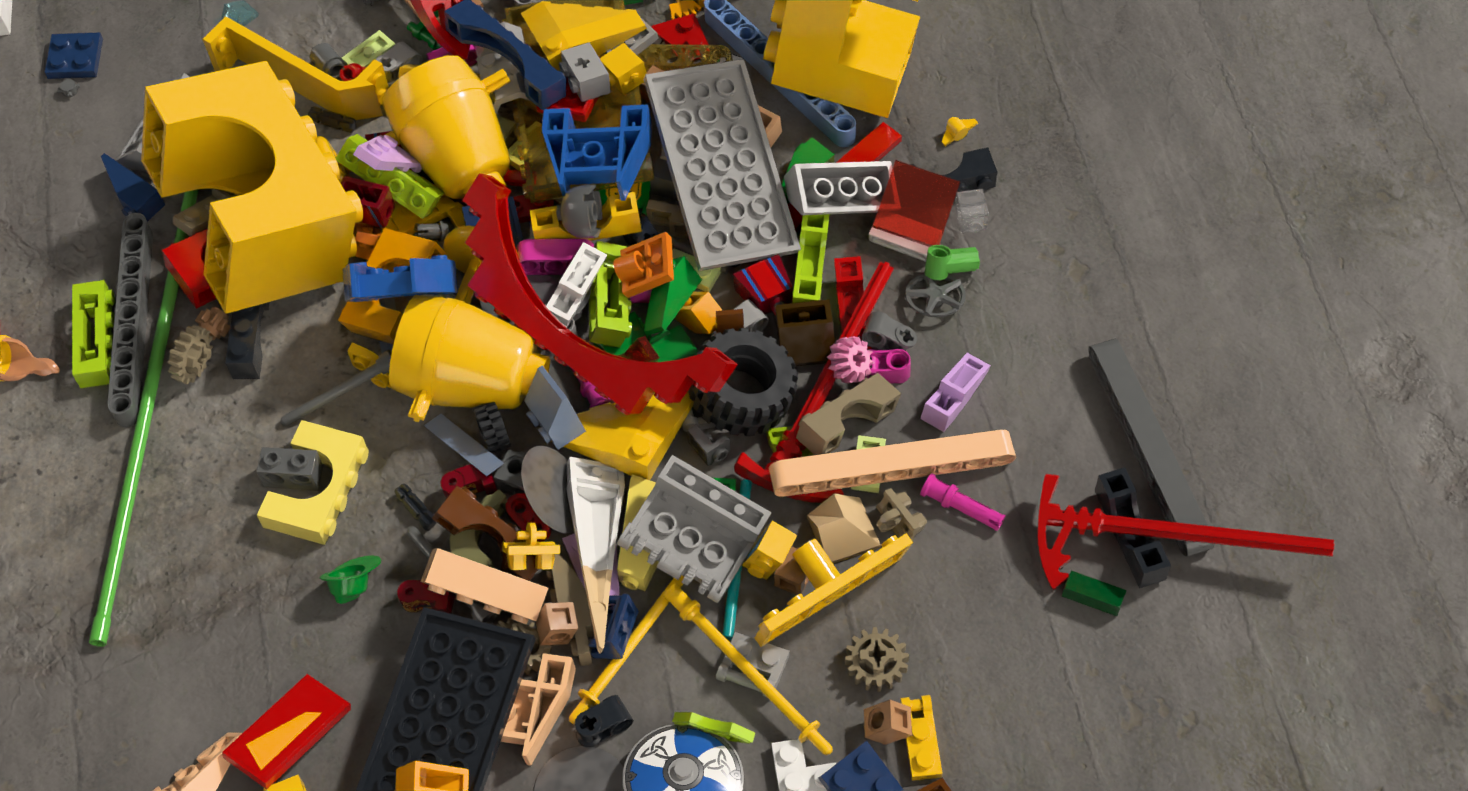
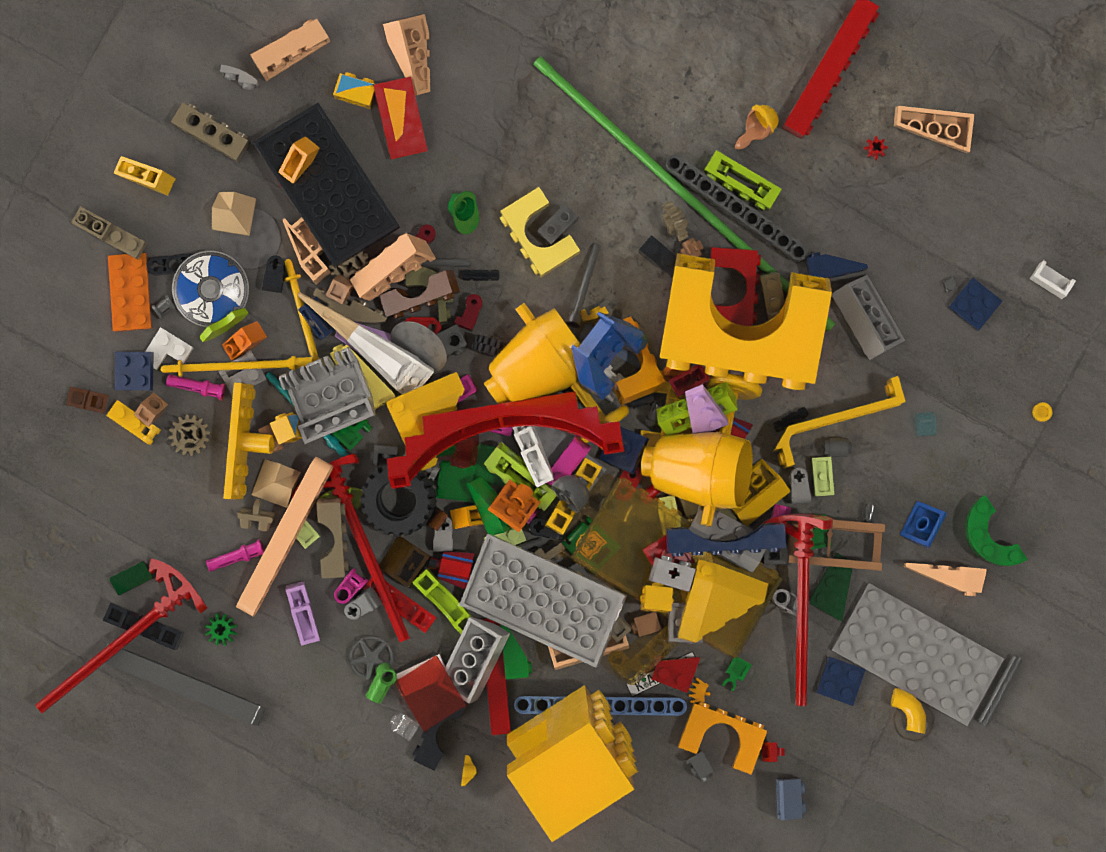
camera: 125 degrees right, 25 degrees up
(351, 71) = (801, 449): red axle -> none
(464, 444) = (490, 326): sand blue sticker -> none
(543, 551) = (391, 306): yellow hips -> none
(552, 411) = (463, 382): sand blue slope -> none
(598, 153) = (600, 527): blue wedge -> none
(711, 689) = (244, 340): none -> orange slope
(807, 689) = (205, 388): none -> dark pink pin
(850, 359) = (360, 565): bright pink gear -> none
(1044, 455) = (226, 634): none -> green gear

